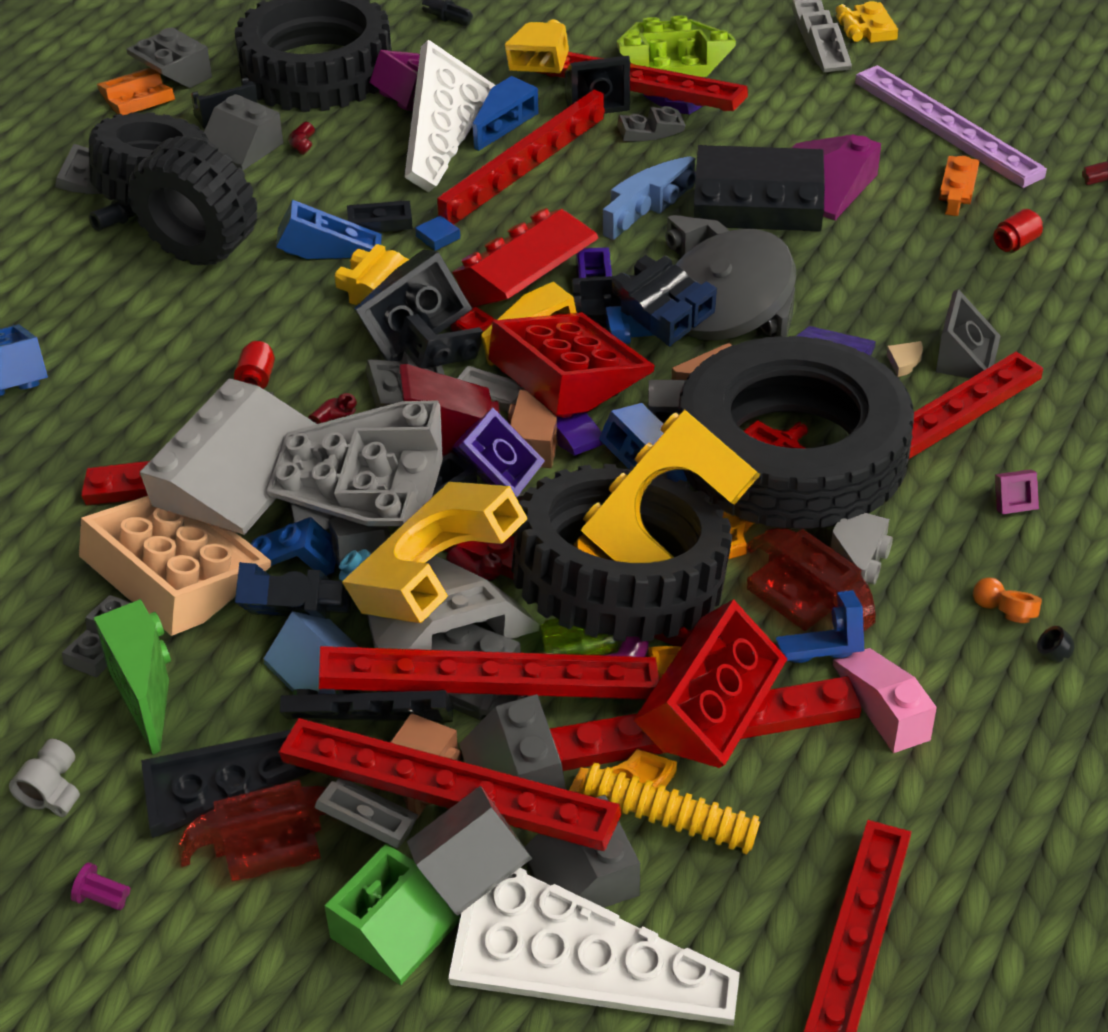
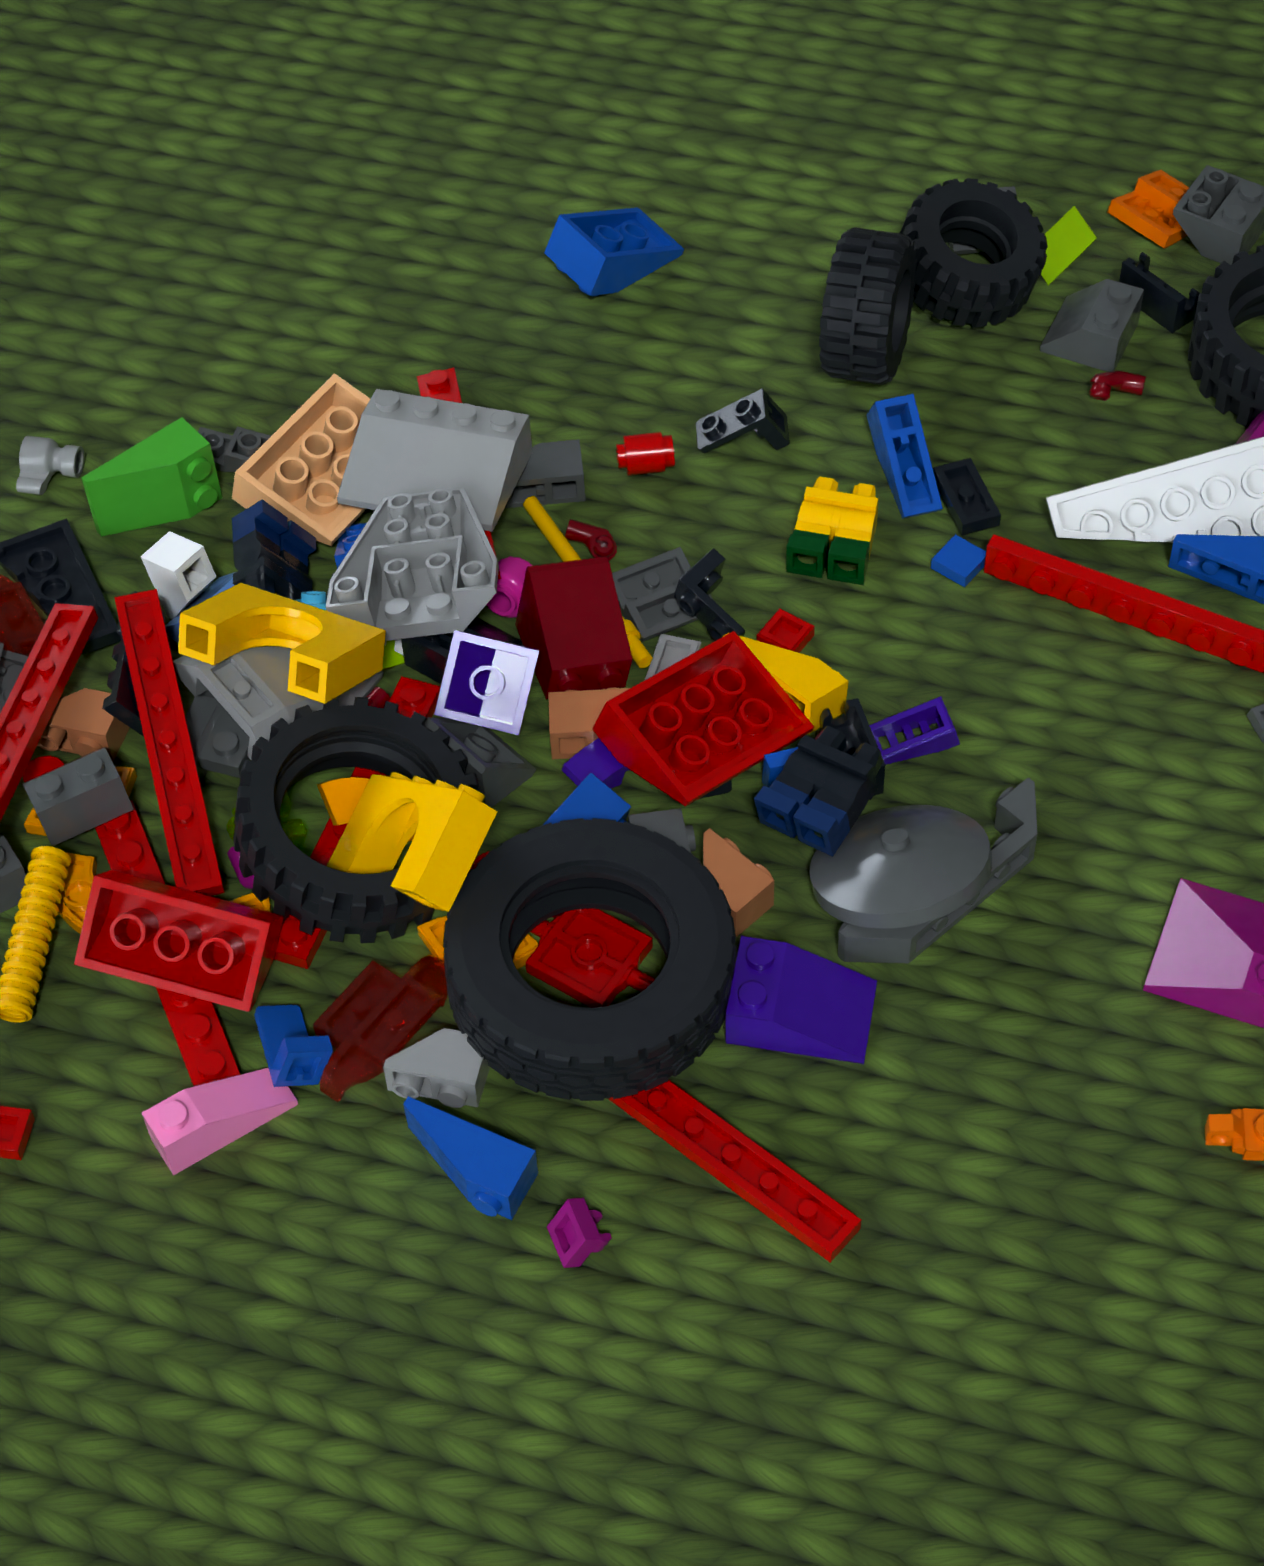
camera: 80 degrees right, 10 degrees up
(248, 311) = (748, 413): none -> black bracket
(281, 652) = (178, 571): none -> white slope
(416, 287) = (767, 554): black slope -> none
(522, 256) = (897, 643): red slope -> none
(645, 191) = (1117, 759): medium blue slope -> none
(760, 187) = (1150, 872): black slope -> none
(904, 357) = (835, 1095): tan tile -> none
(946, 540) = (482, 1164): none -> blue slope
(967, 340) = (874, 1158): dark grey slope -> none
(1017, 605) = (400, 1219): orange plate -> none
(1018, 230) = (1165, 1216): red brick -> none
(1051, 648) = (315, 1289): black hinge -> none

